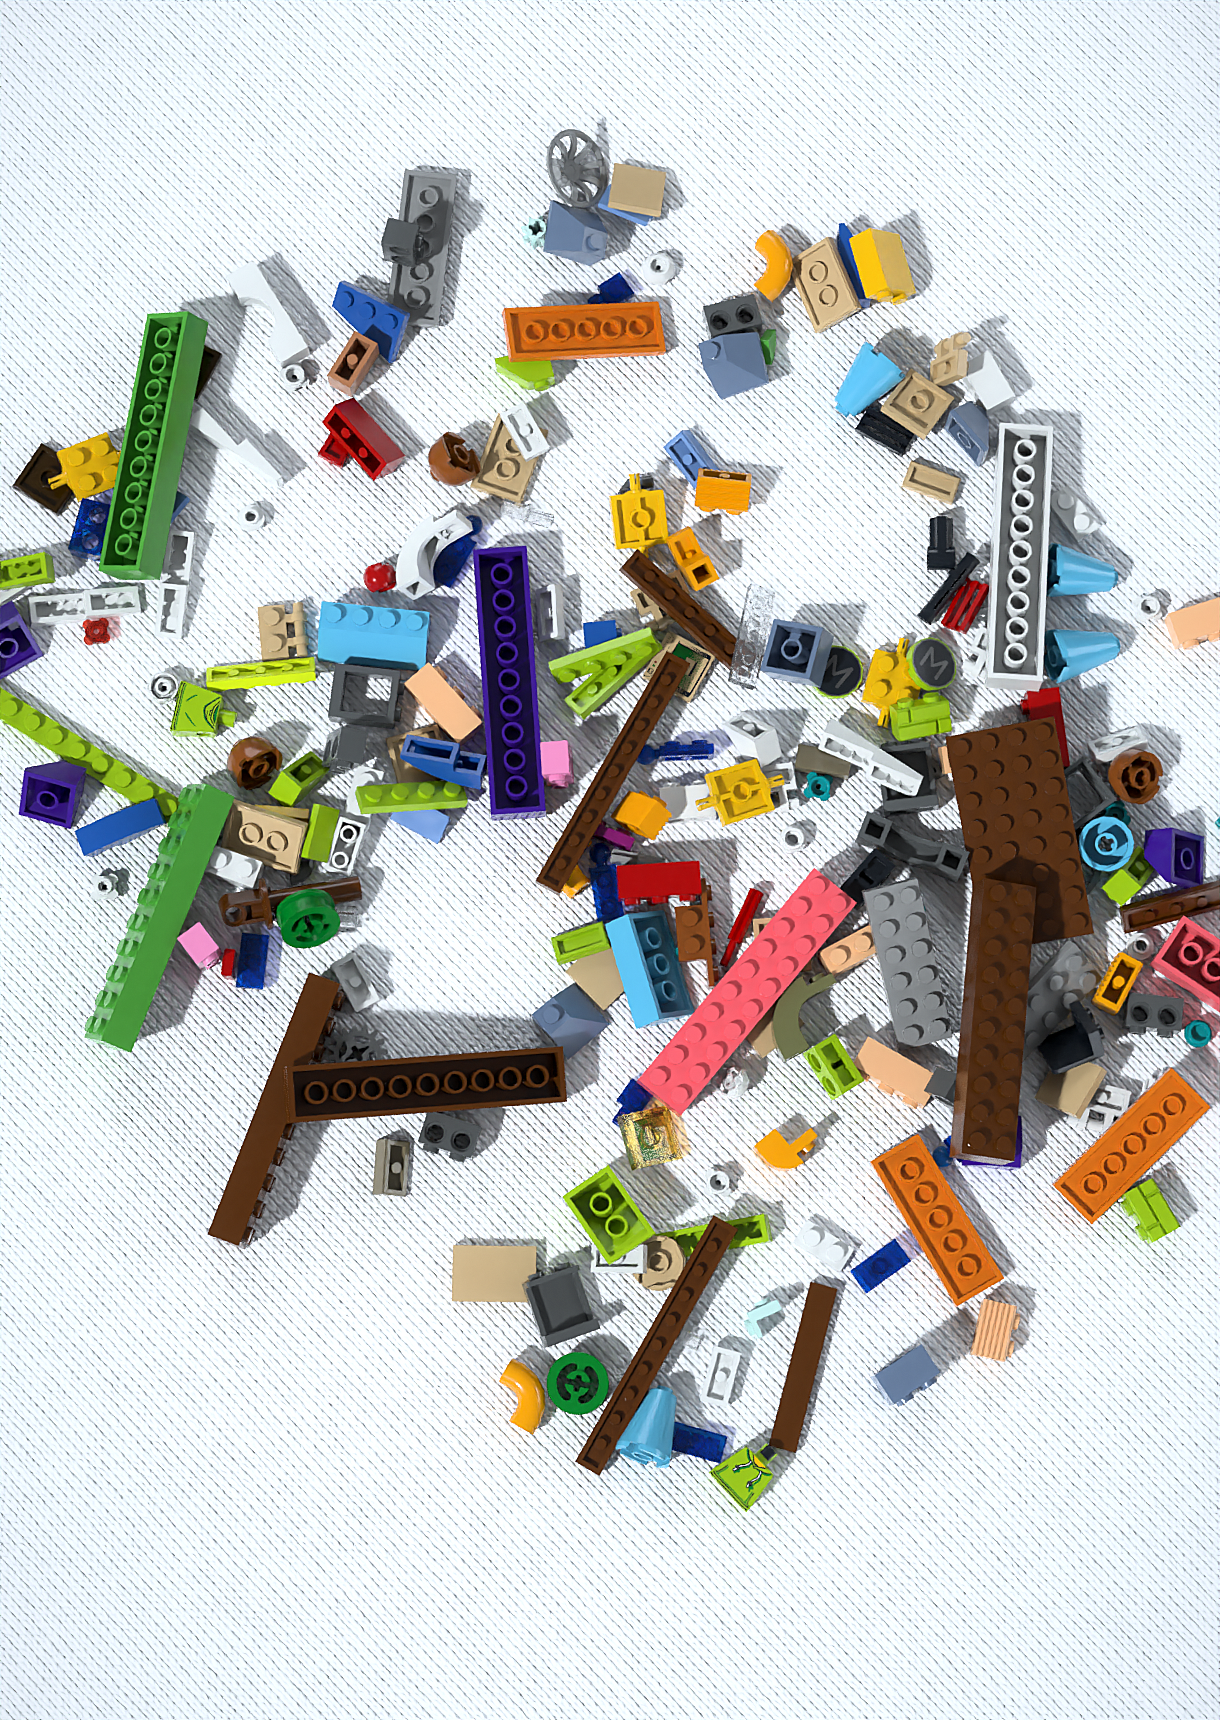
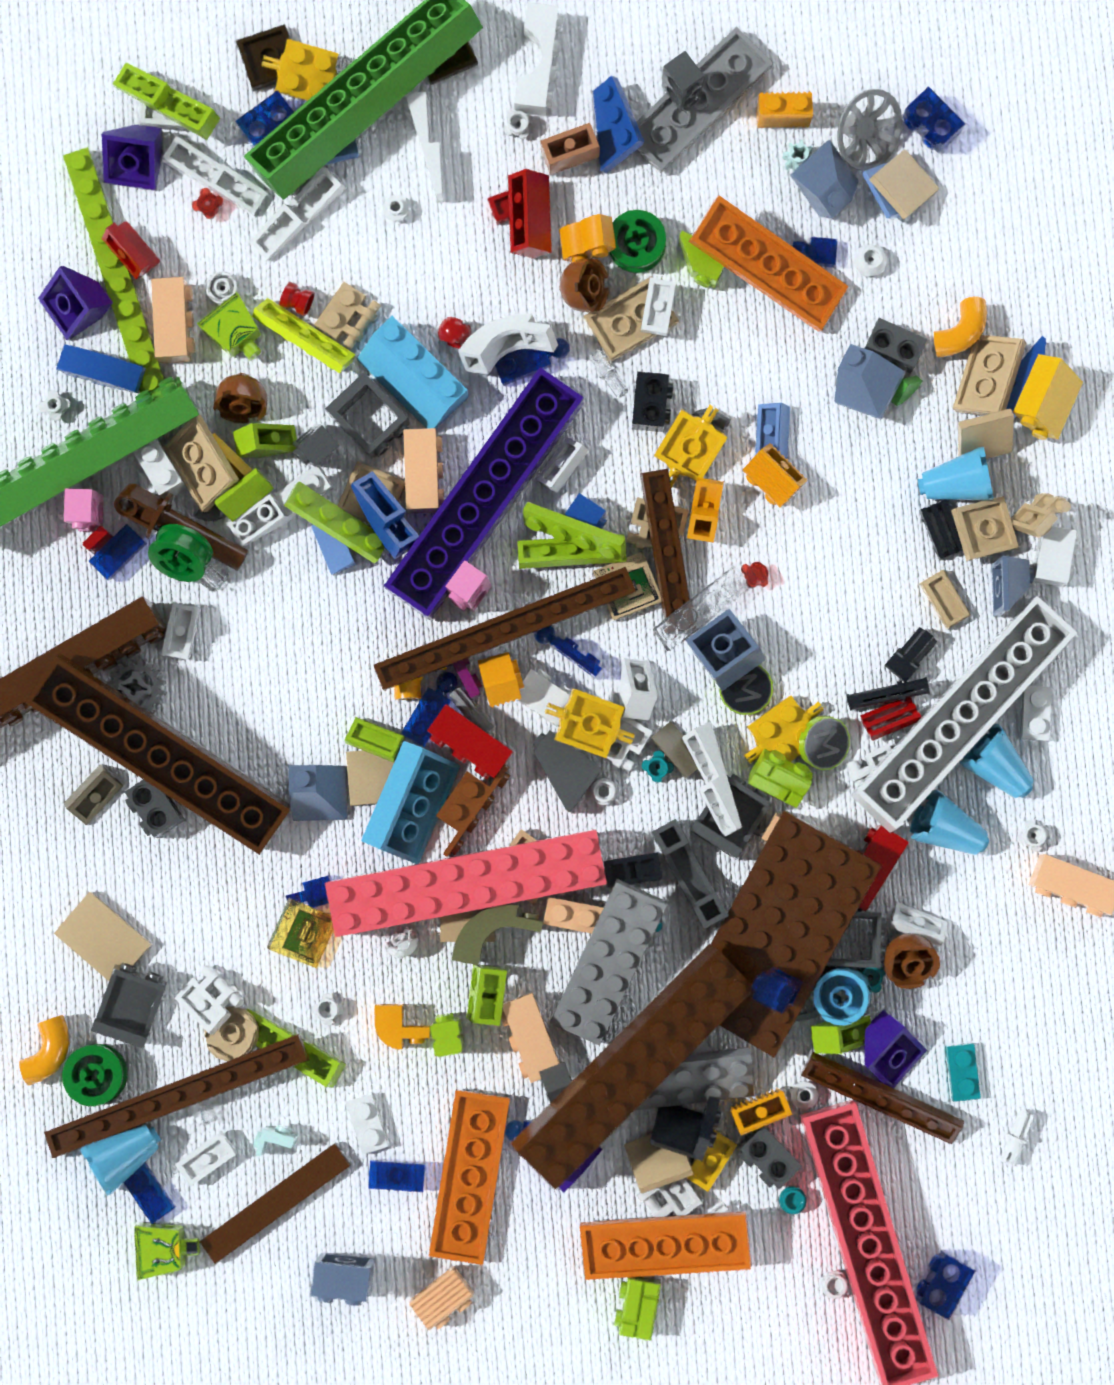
camera: 45 degrees right, 5 degrees up
(65, 715) = (130, 249): none -> red panel
(145, 744) = (172, 320): none -> light nougat brick
(231, 649) = (295, 298): none -> red wheel
(426, 422) = (588, 238): none -> light orange brick
(482, 405) = (633, 223): none -> green wheel
(496, 204) = (784, 109): none -> light orange brick
(574, 512) = (645, 401): none -> black brick
(608, 1215) = (219, 968): lime slope -> none
(618, 116) = (938, 116): none -> clear blue brick
(742, 923) = (511, 825): red axle -> none
(748, 845) = (565, 768): none -> dark grey slope
(770, 578) = (755, 574): none -> clear red plate
(829, 1121) = (447, 1035): none -> lime brick
(860, 326) = (991, 431): none -> tan tile
(1053, 873) = (776, 989): none -> clear blue brick
(1115, 1058) = (715, 1158): none -> yellow plate

